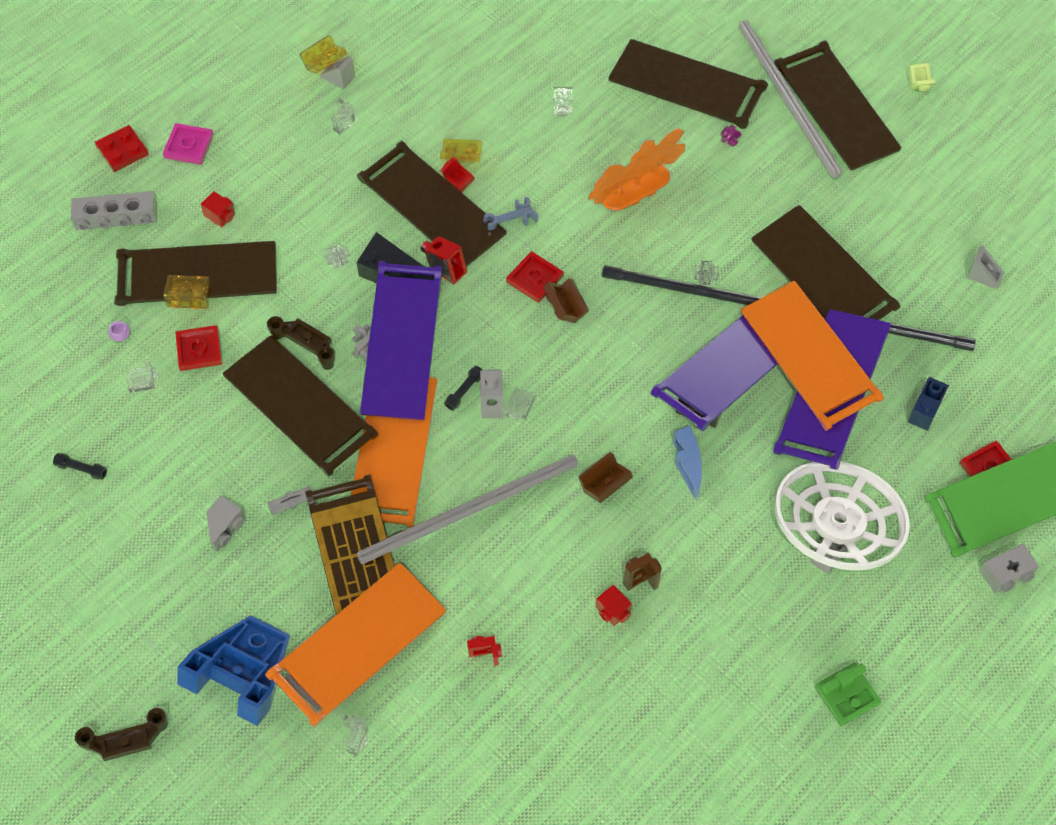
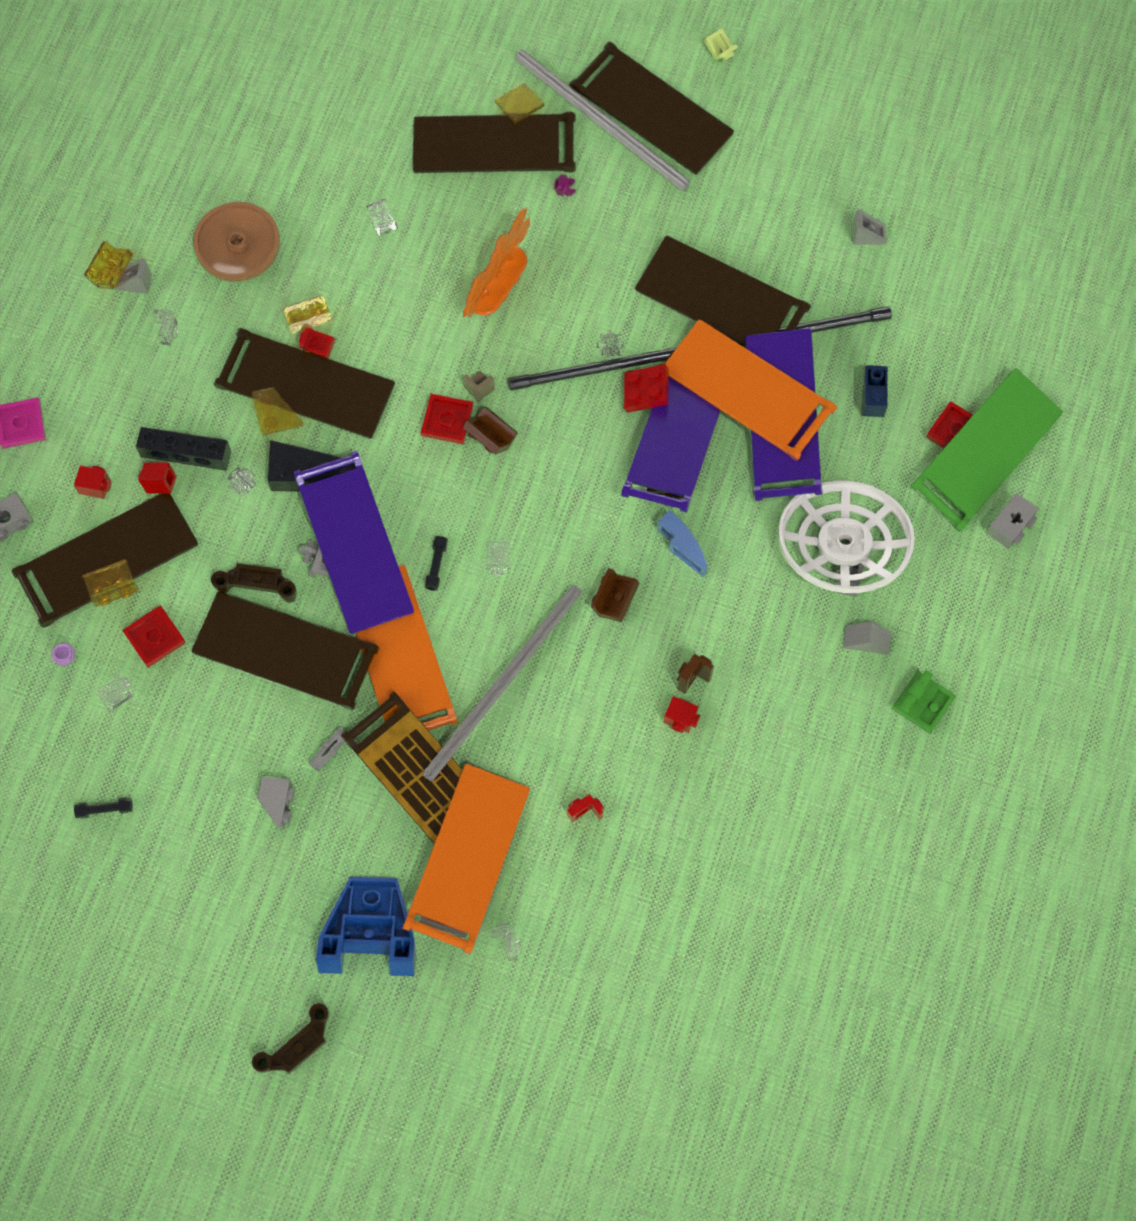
camera: 25 degrees left, 10 degrees up
(270, 225) = (157, 477): none -> red brick
(304, 213) = (183, 448): none -> black brick
(392, 214) = (273, 412): none -> clear yellow wing
(434, 74) = (236, 241): none -> medium nougat dish
(448, 255) = (349, 437): red torso -> none
(491, 389) = (466, 556): light grey torso -> none
(521, 210) = (399, 353): sand blue bar -> none
(576, 262) = (479, 385): none -> dark tan panel
(720, 319) = (646, 388): none -> red plate
(724, 59) = (519, 103): none -> clear yellow piece
(822, 614) = (867, 637): none -> light grey slope

